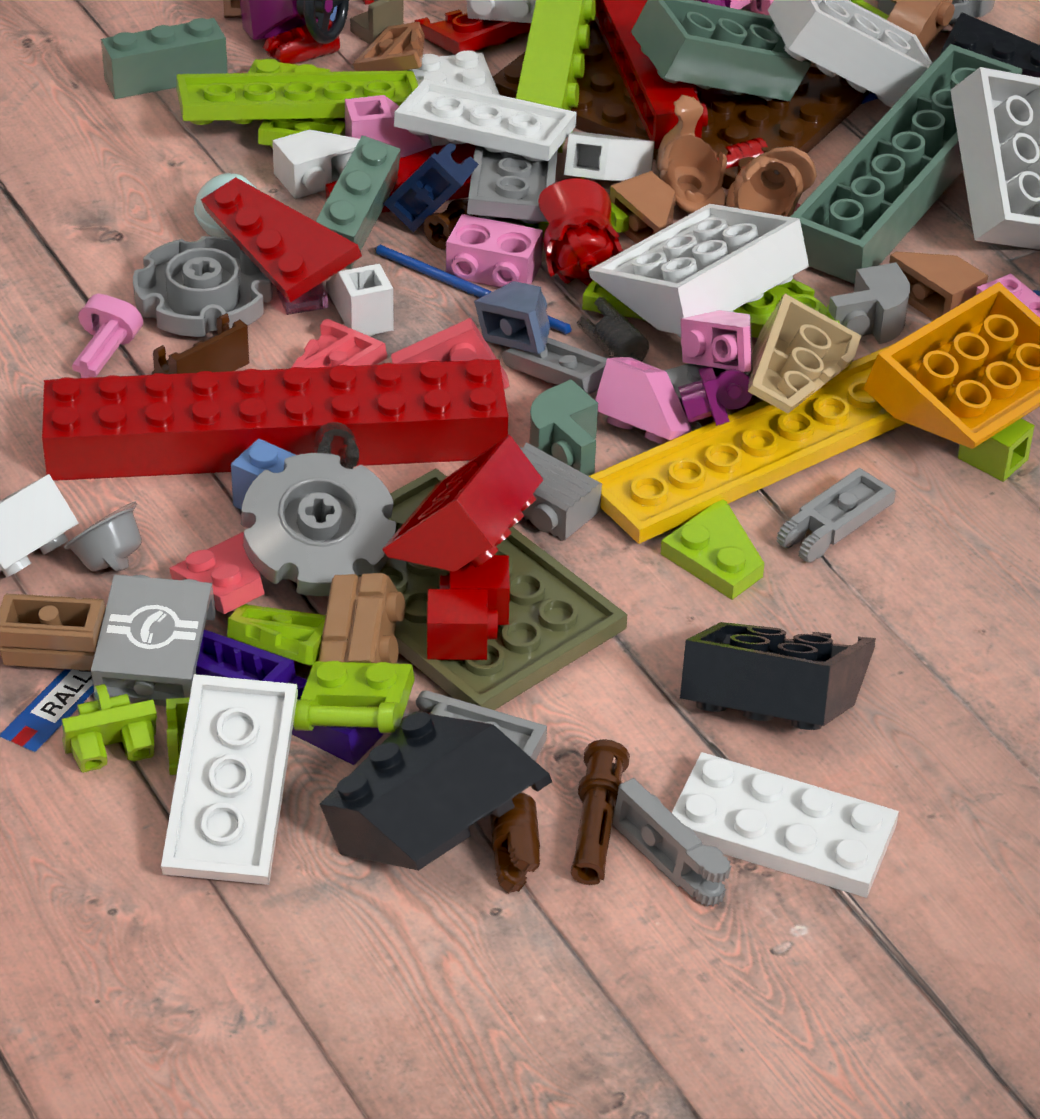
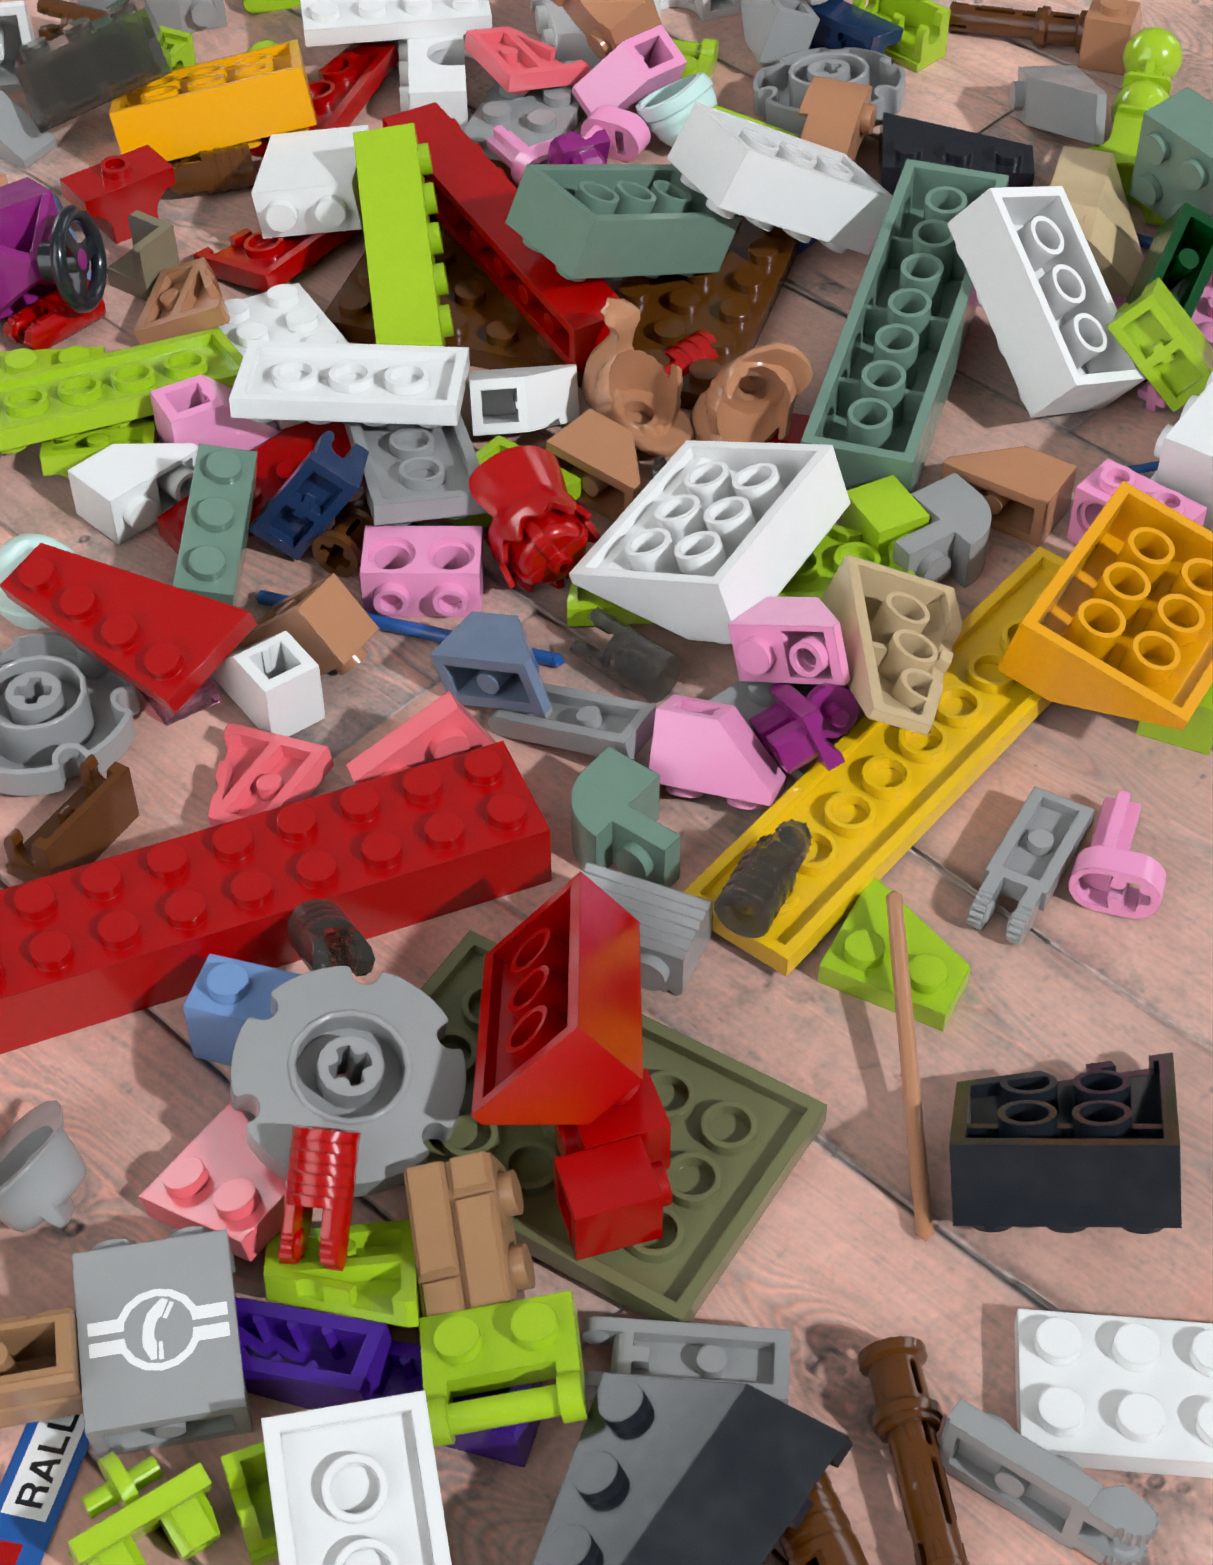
camera: 15 degrees left, 5 degrees up
(275, 577) = (321, 1177): none -> red hinge
(412, 271) = (323, 622): none -> nougat slope
(638, 476) = (763, 880): none -> clear smoke hinge
(694, 605) = (909, 1067): none -> nougat axle
(832, 277) = (883, 513): none -> lime brick
(891, 531) = (1108, 866): none -> bright pink piece

